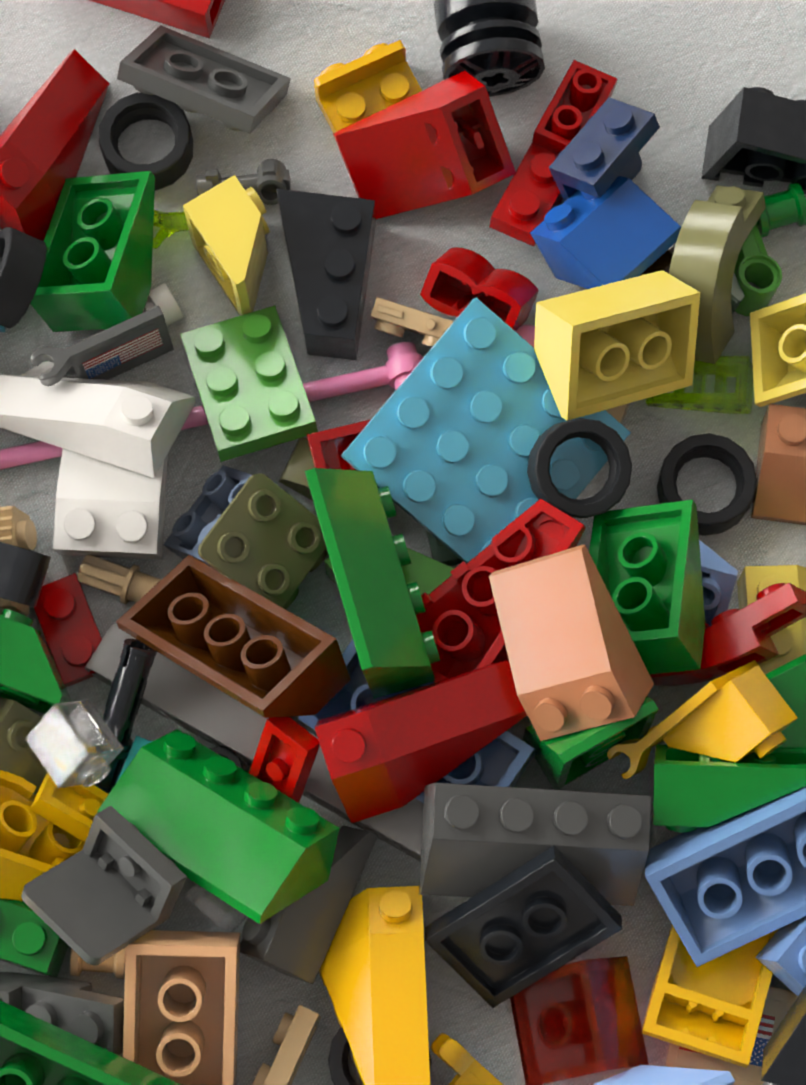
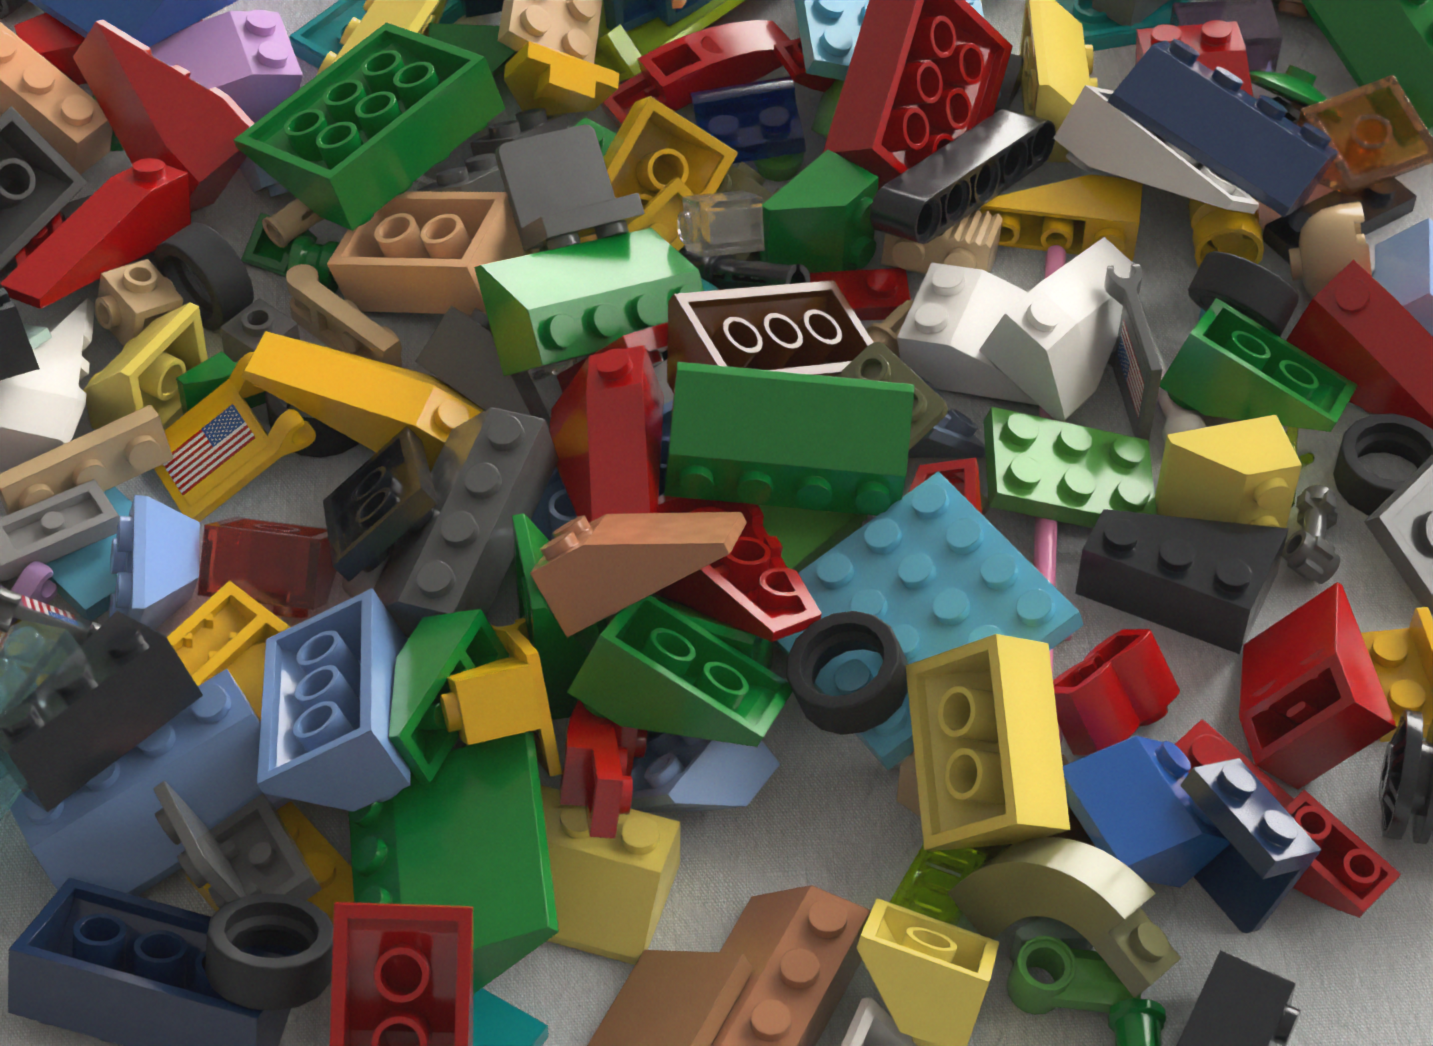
camera: 105 degrees right, 25 degrees down
(396, 318) = (1104, 613): tan piece -> none
(728, 453) = (808, 814): black tyre -> none

